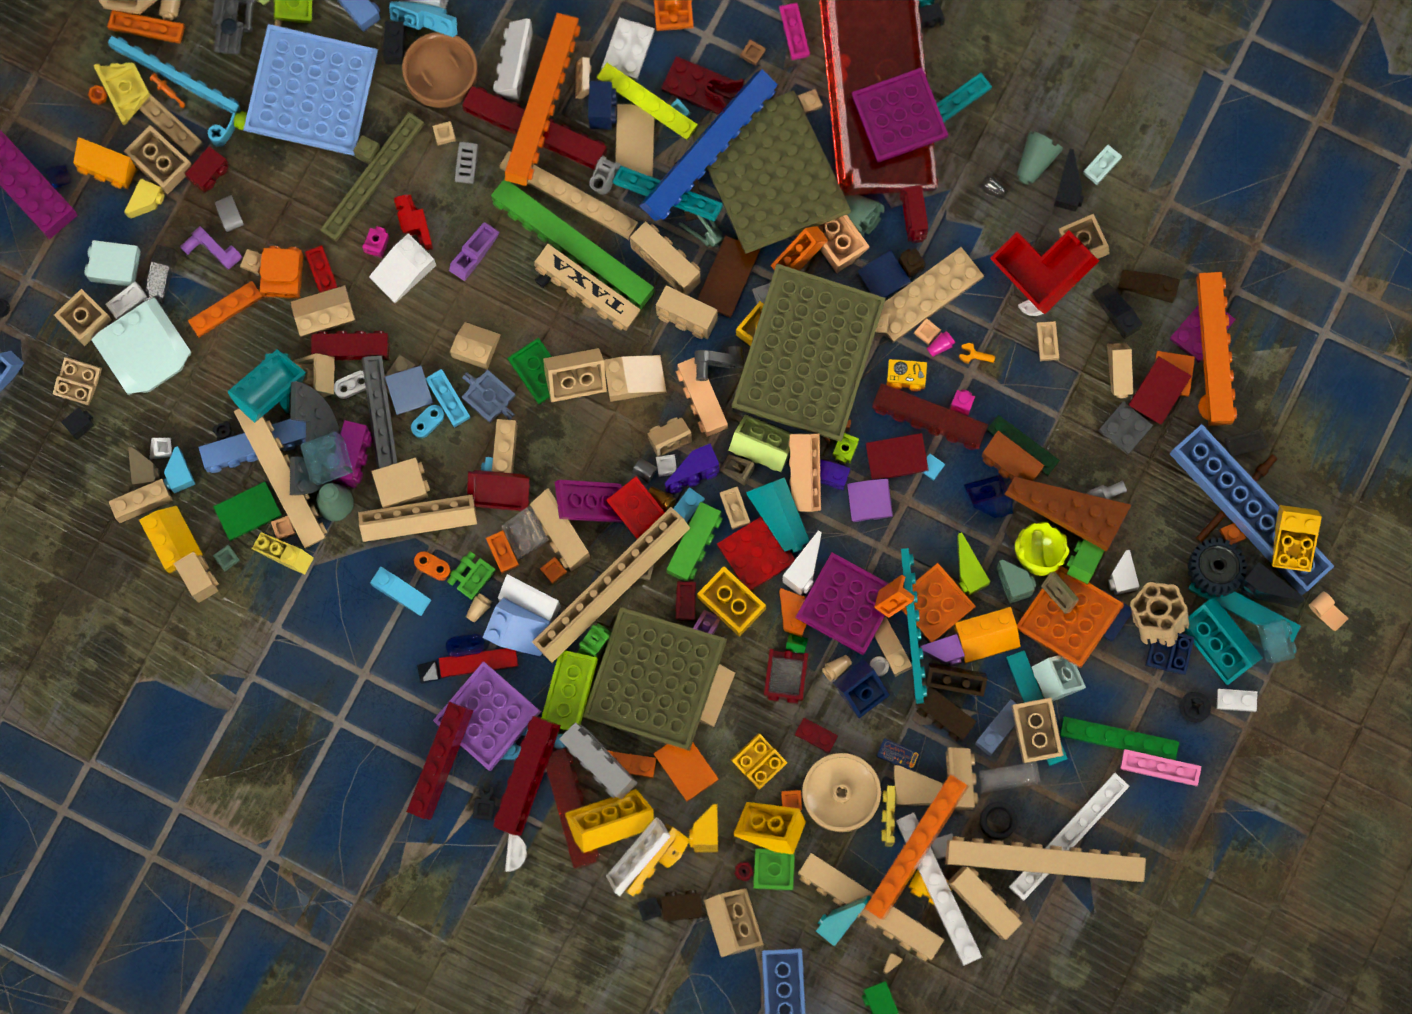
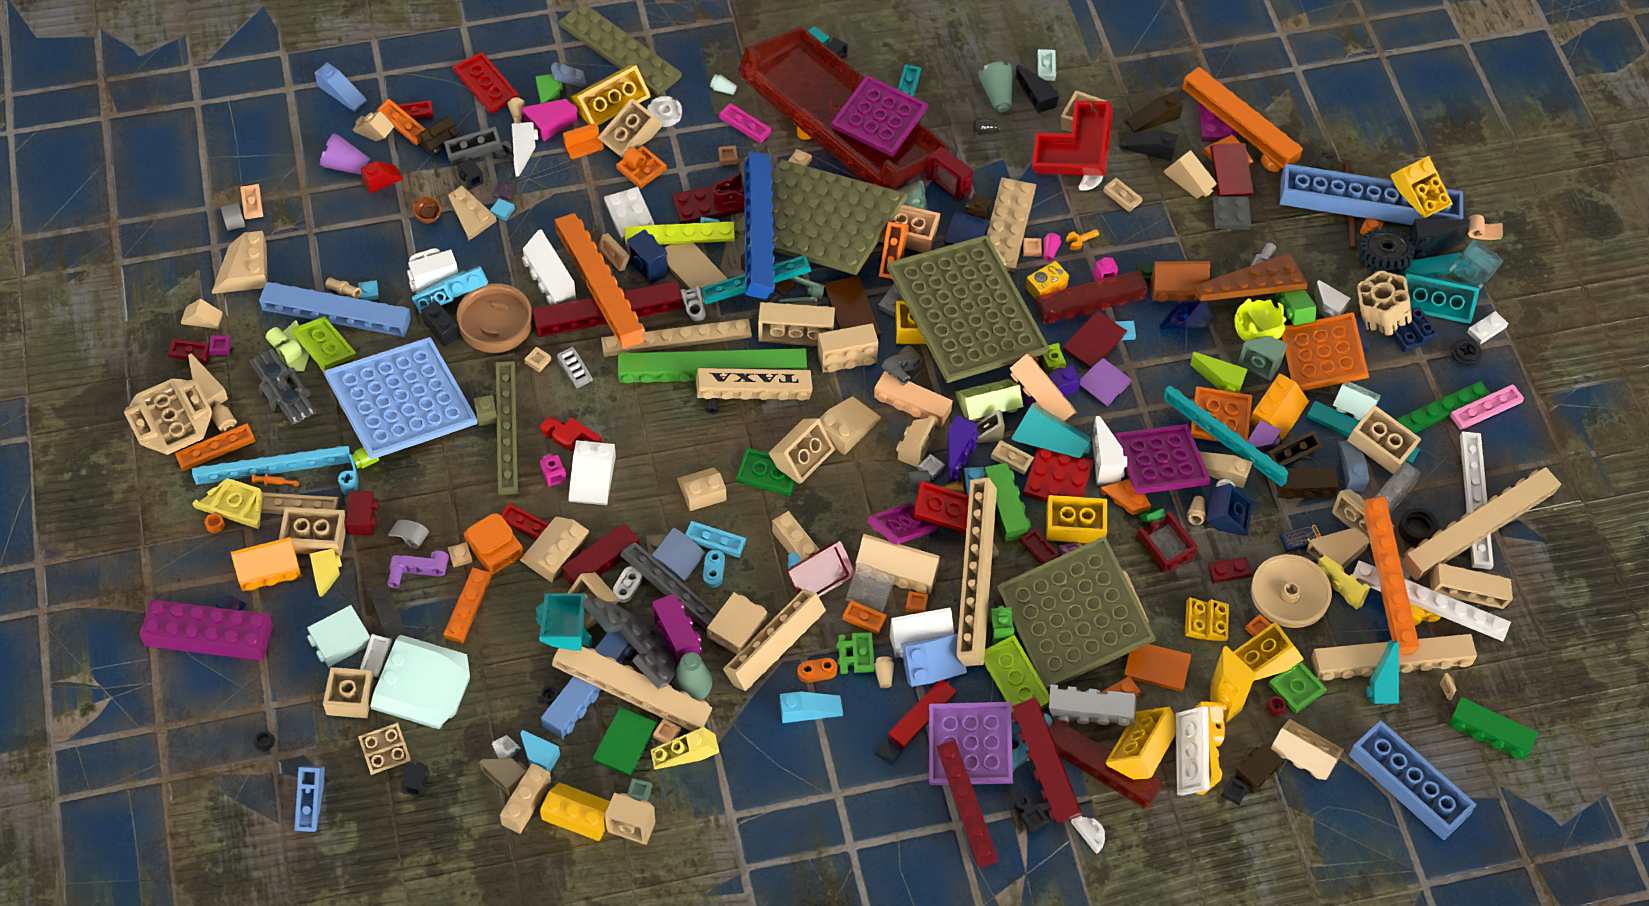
camera: 45 degrees left, 20 degrees down
(326, 458) = (665, 636): clear light blue brick -> none
(465, 644) = (901, 706): clear blue plate -> none
(473, 251) = (638, 424): medium lavender slope -> none
(488, 396) = (746, 515): sand blue plate -> none
(893, 597) = (1194, 423): orange panel -> none
(1060, 592) = (1303, 338): dark tan plate -> none

